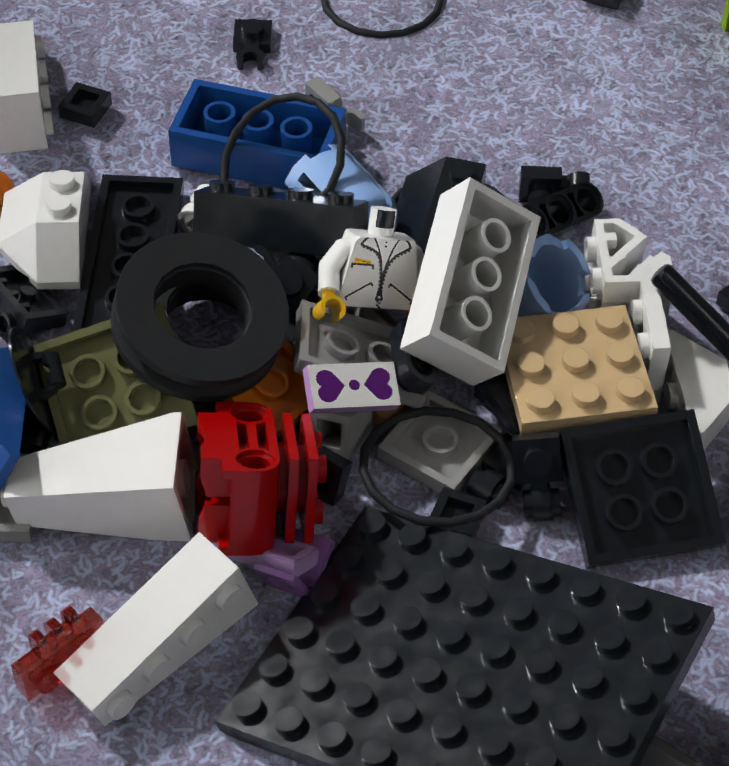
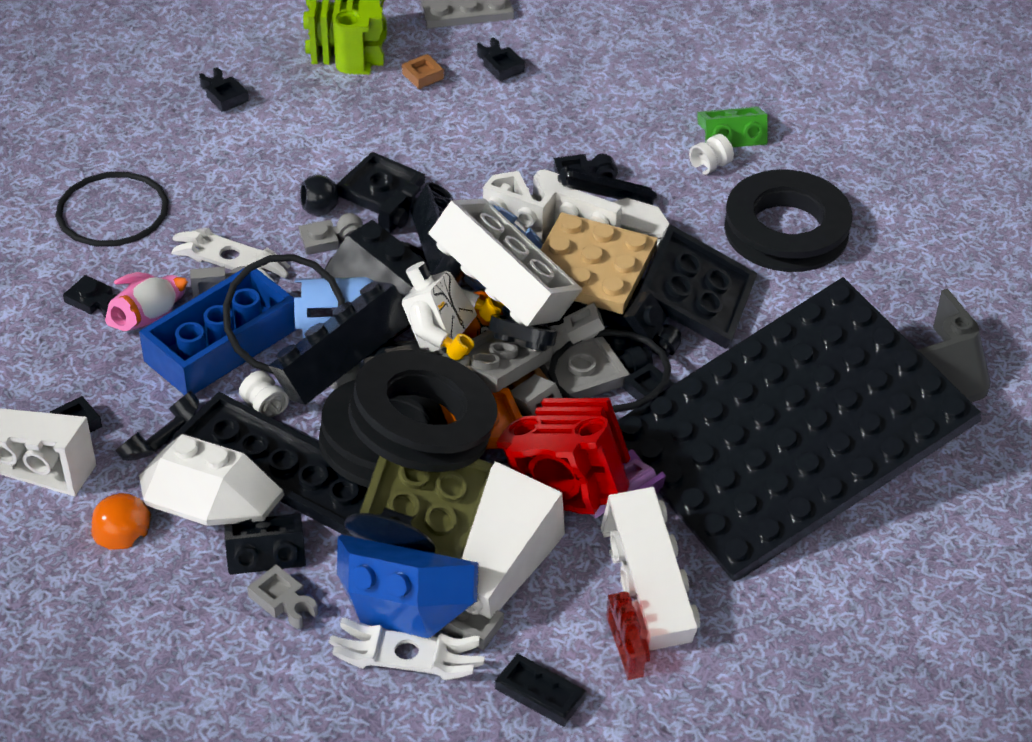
camera: 60 degrees left, 5 degrees down
(76, 160) = (139, 448): none -> black bar
(259, 67) = (143, 300): none -> animal
(351, 387) = (534, 369): tile -> none
(383, 116) = (212, 246): none -> white piece
(469, 405) = (579, 326): none -> light grey plate
(470, 147) = (324, 237): none -> light grey plate
(515, 118) = (318, 195): none -> black piece
(583, 149) = (376, 181): none -> black plate

